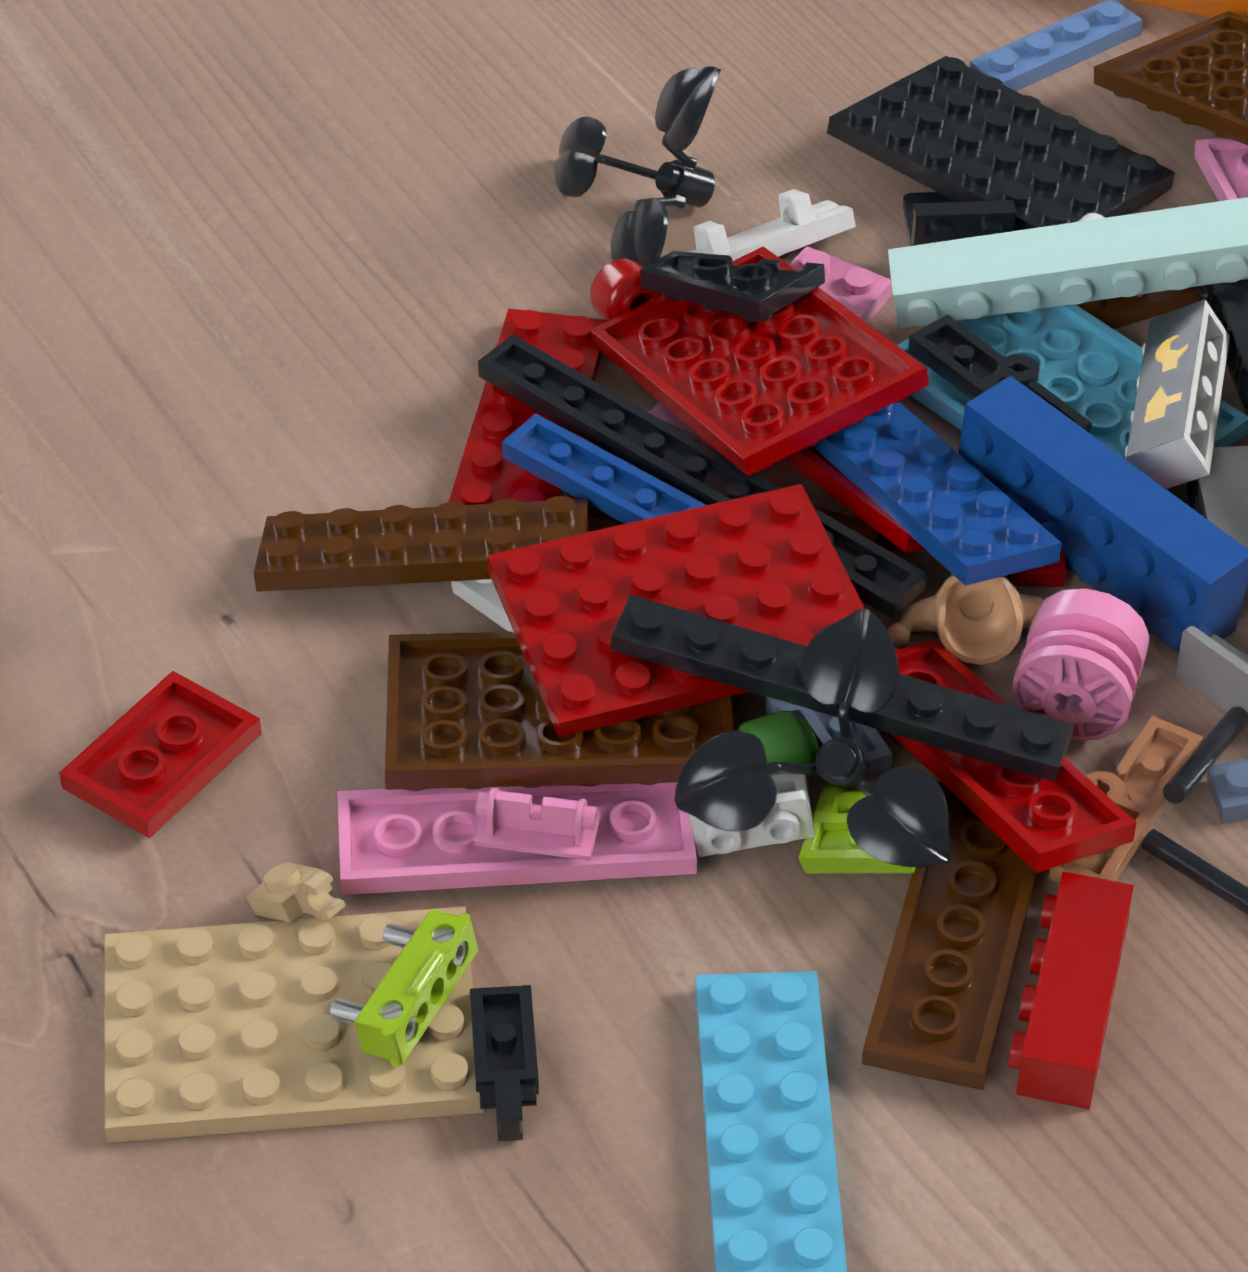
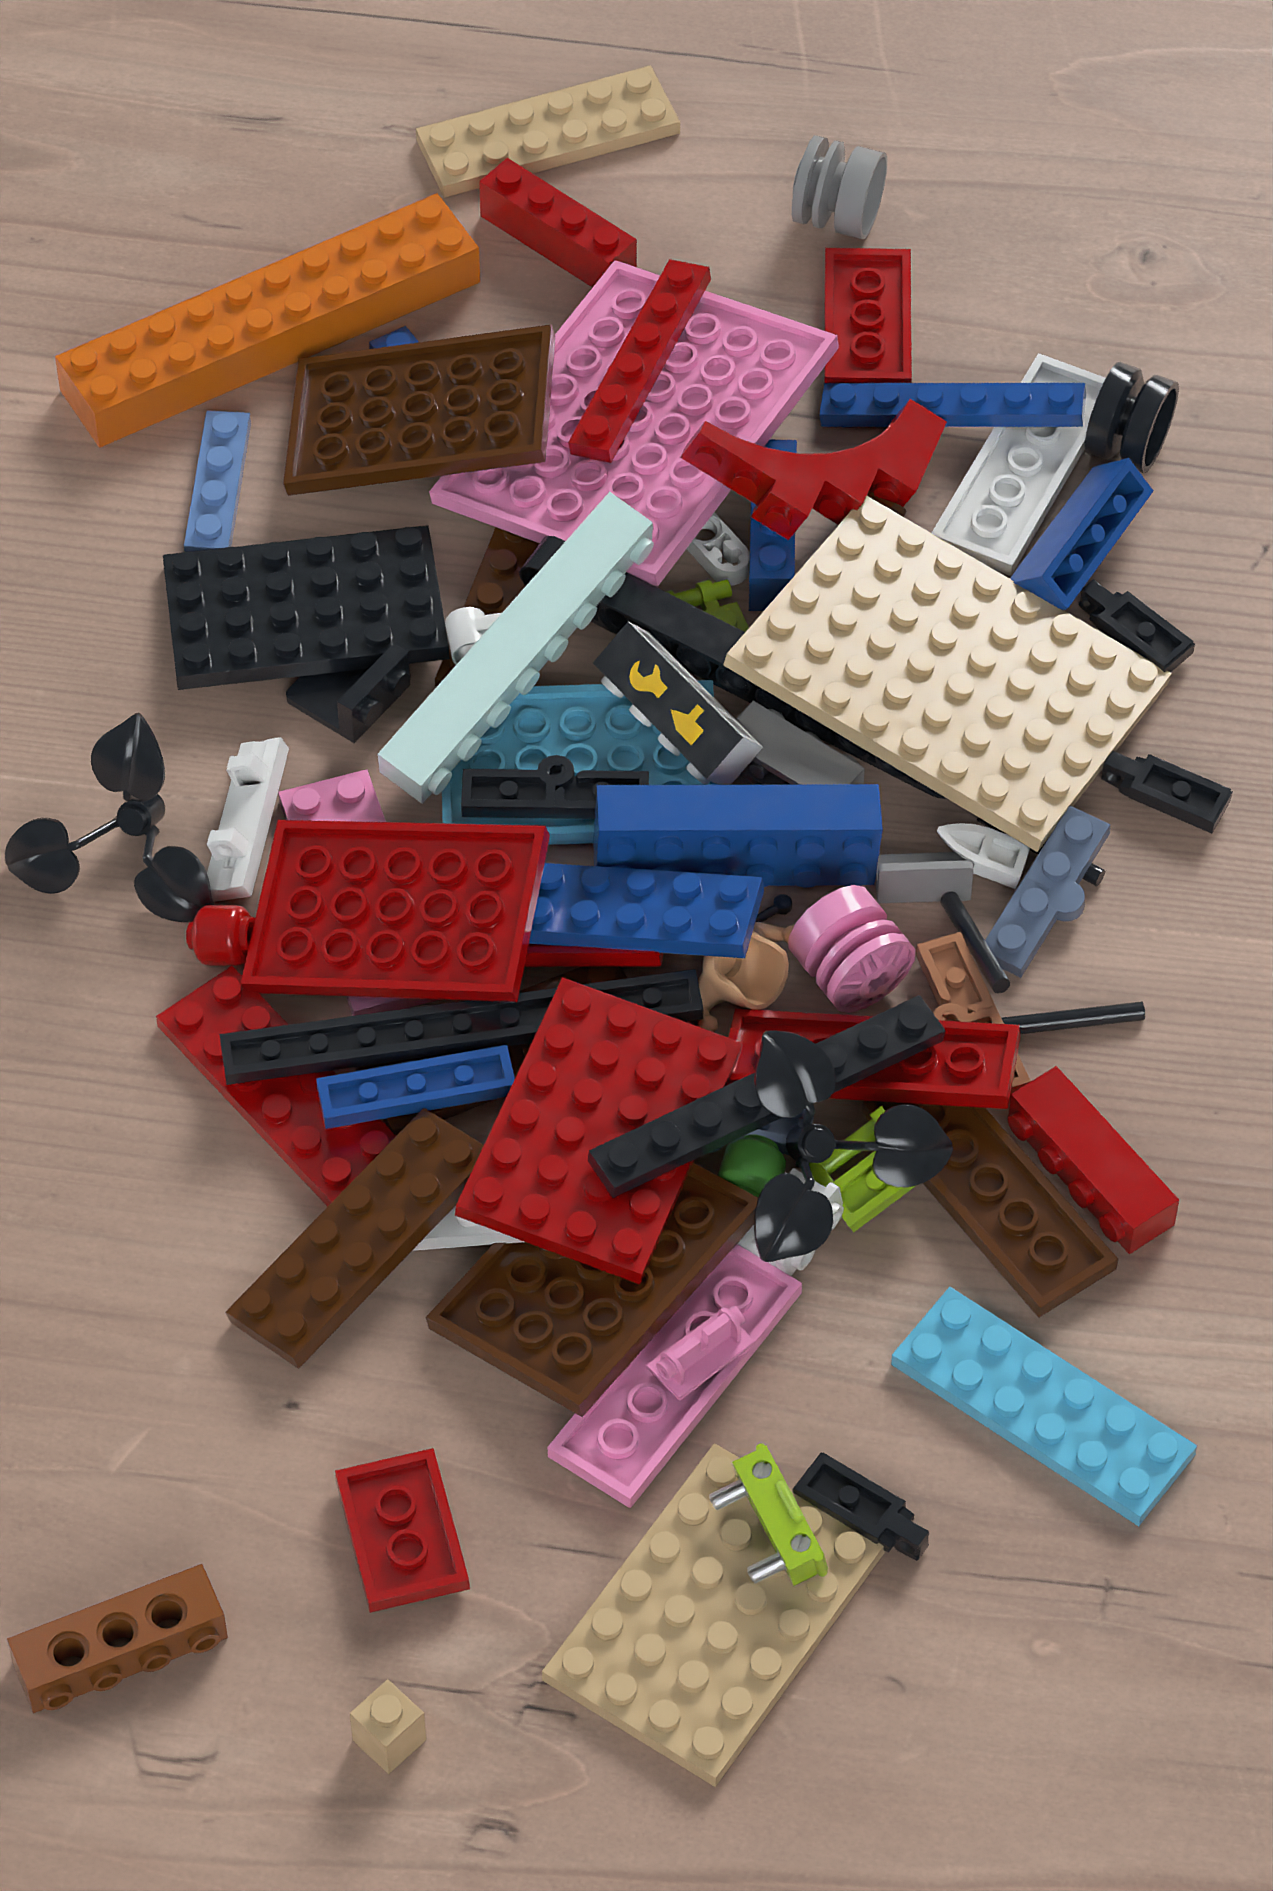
camera: 50 degrees left, 10 degrees up
(294, 890) = (612, 1532): tan plate -> none
(717, 284) = (324, 868): black wing -> none

